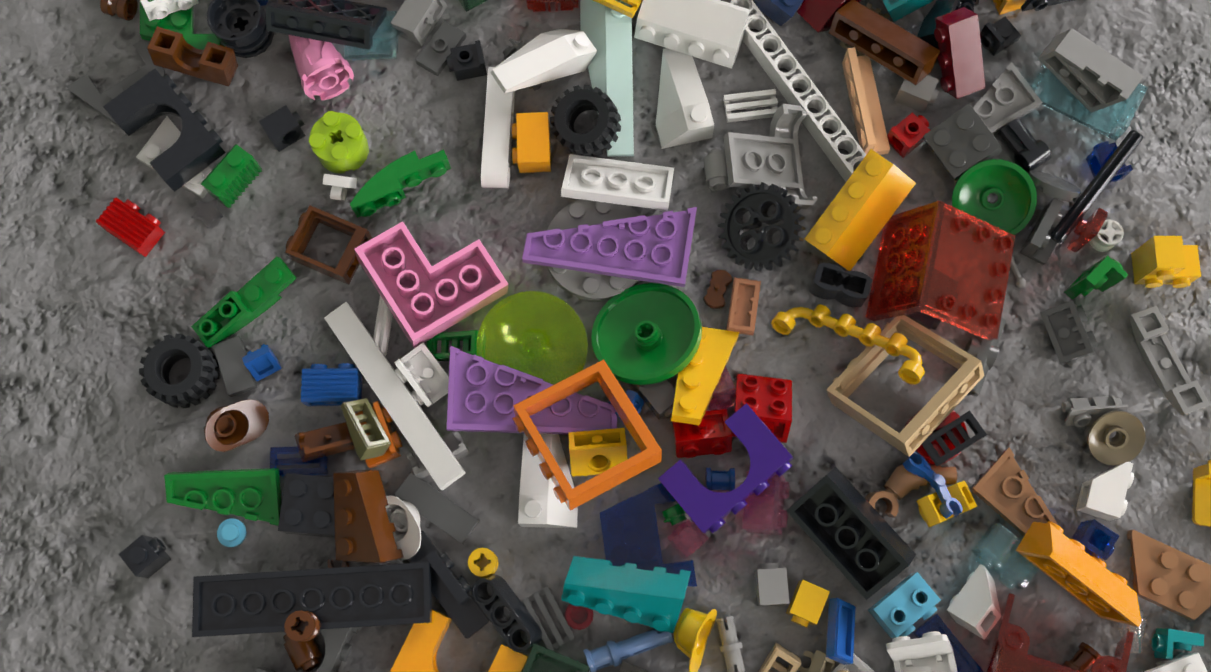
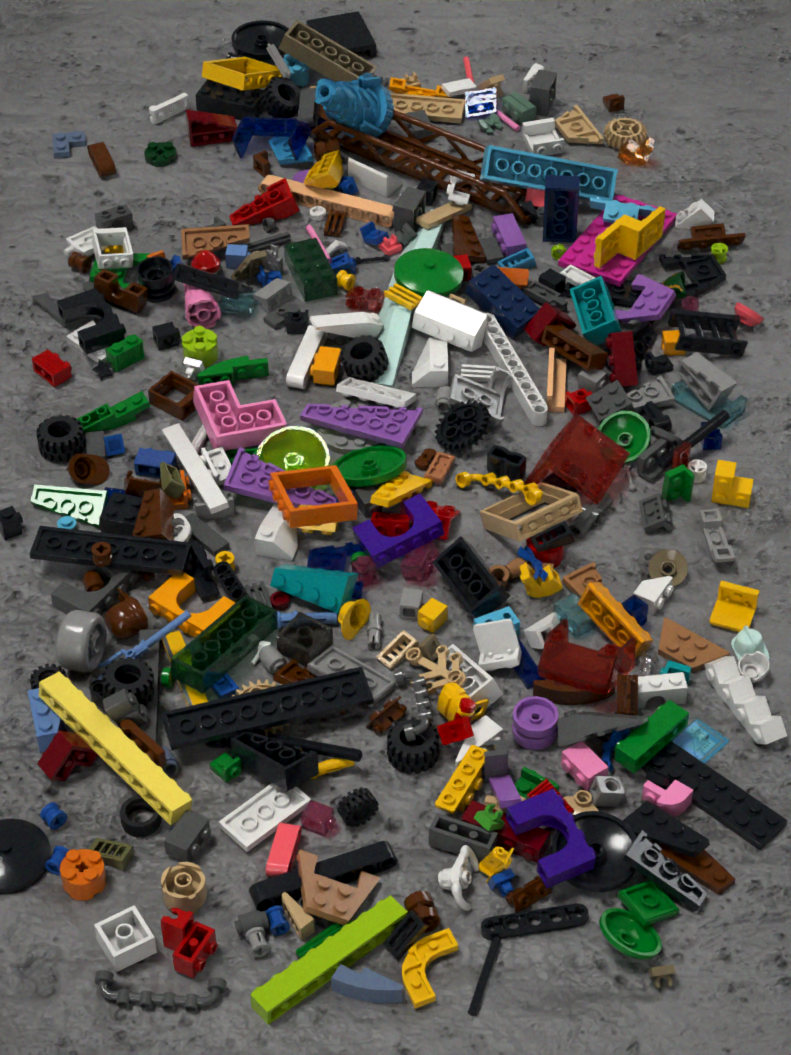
camera: 10 degrees right, 30 degrees down
(840, 631) = (449, 629): blue tile -> none
(860, 210) = (531, 423): yellow slope -> none

